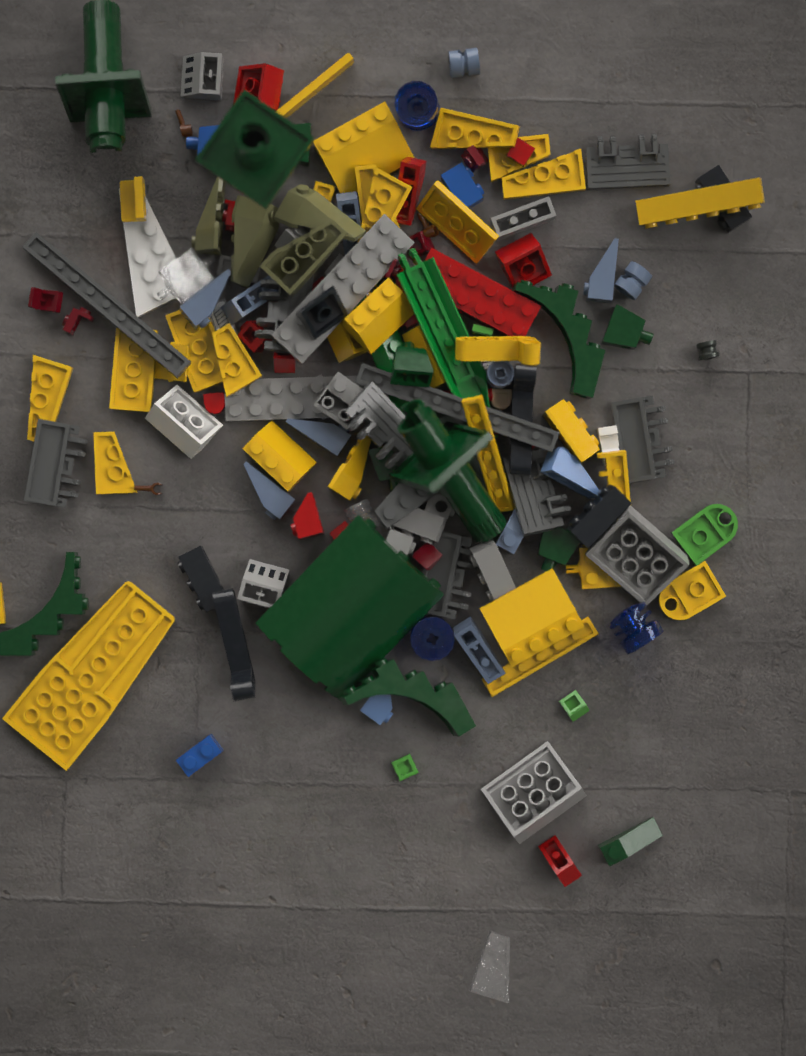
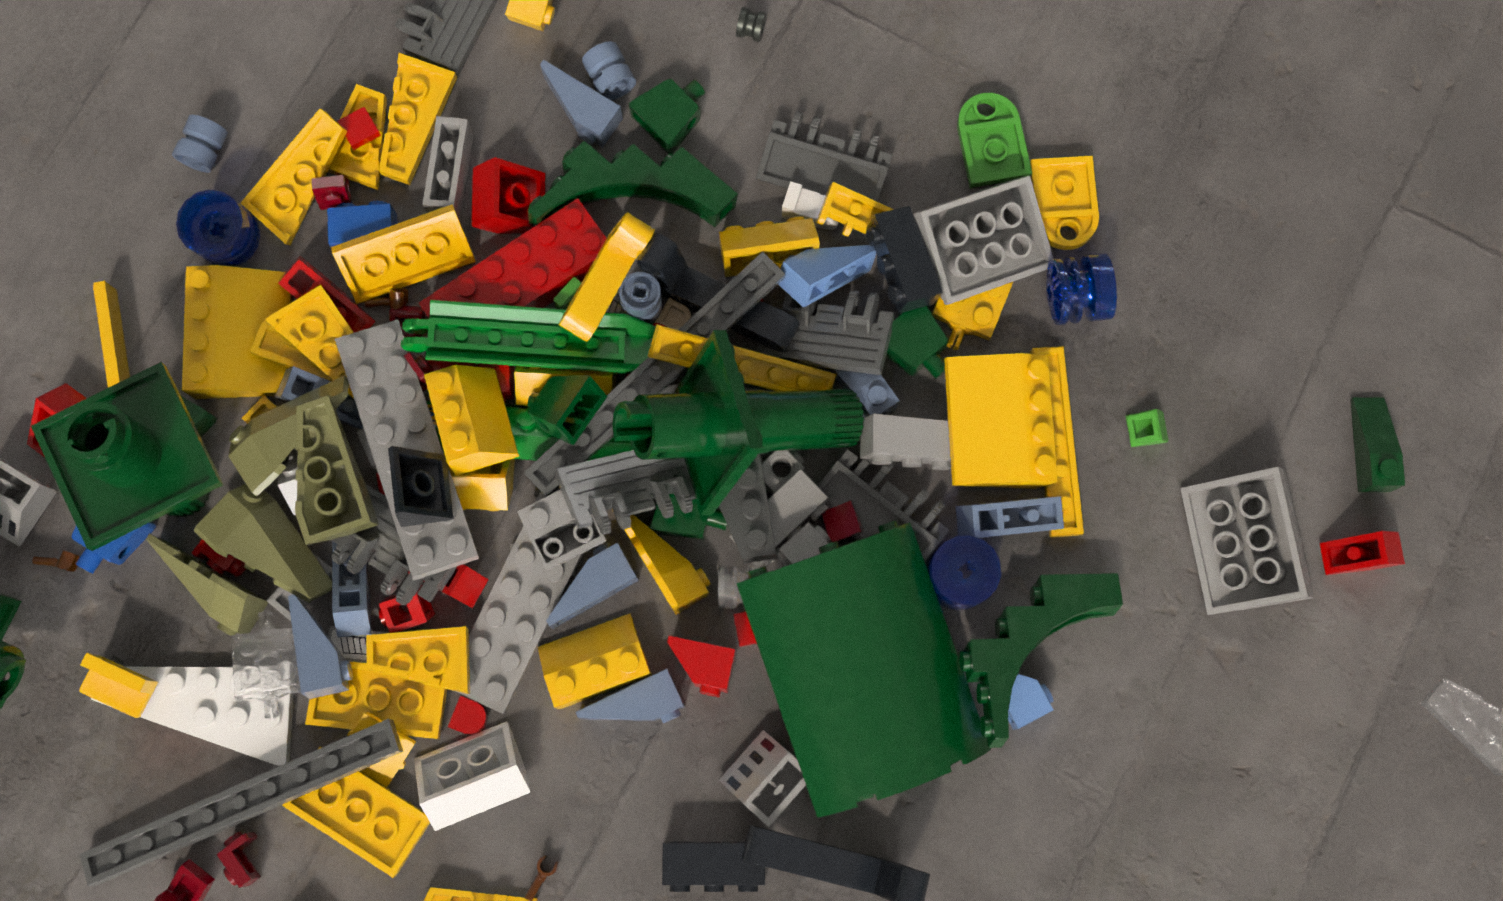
camera: 65 degrees left, 10 degrees down
(404, 767) = (1127, 707): bright green tile -> none

